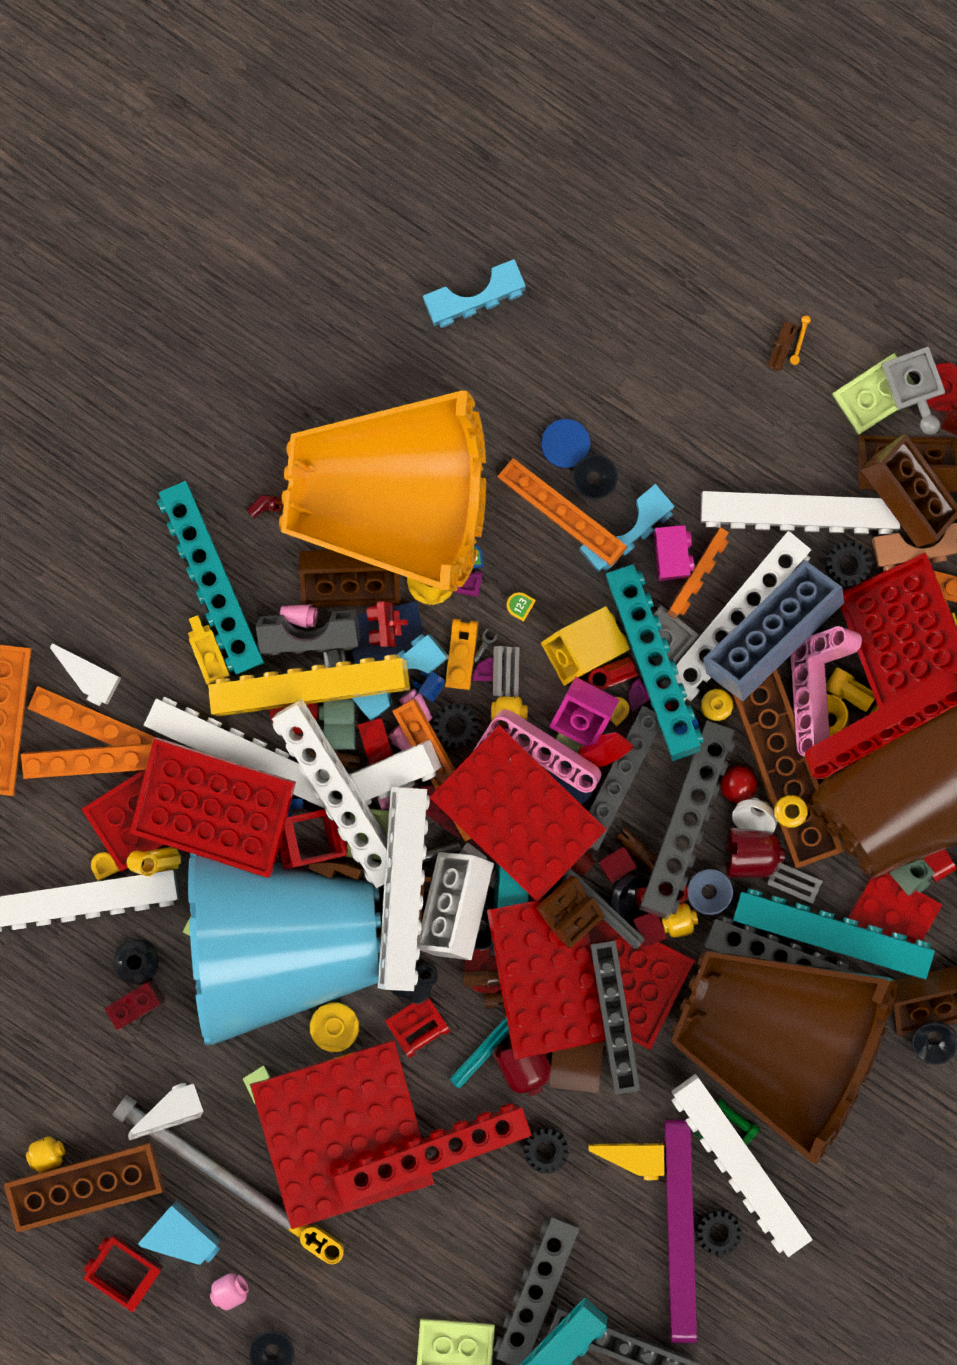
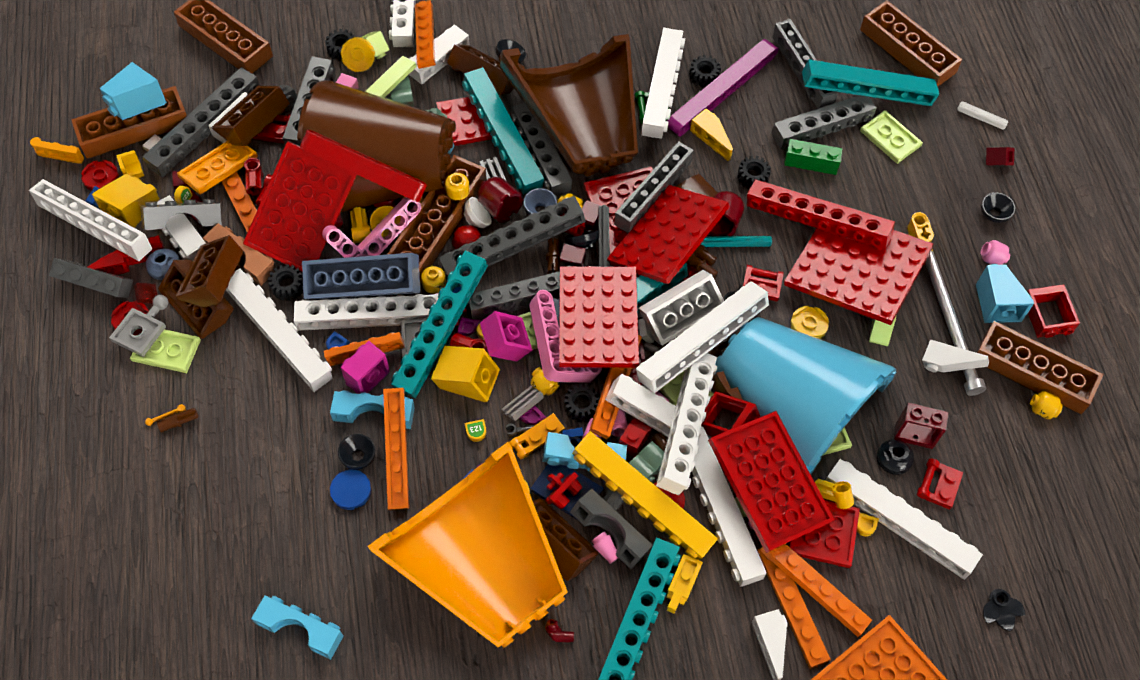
camera: 135 degrees left, 25 degrees down
(67, 976) = (946, 485): none -> red plate
(505, 1230) = (813, 156): none -> green brick
(570, 912) = (623, 248): reddish brown slope -> none
(607, 750) = (514, 304): red slope -> none
(734, 556) = (336, 340): none -> blue tile

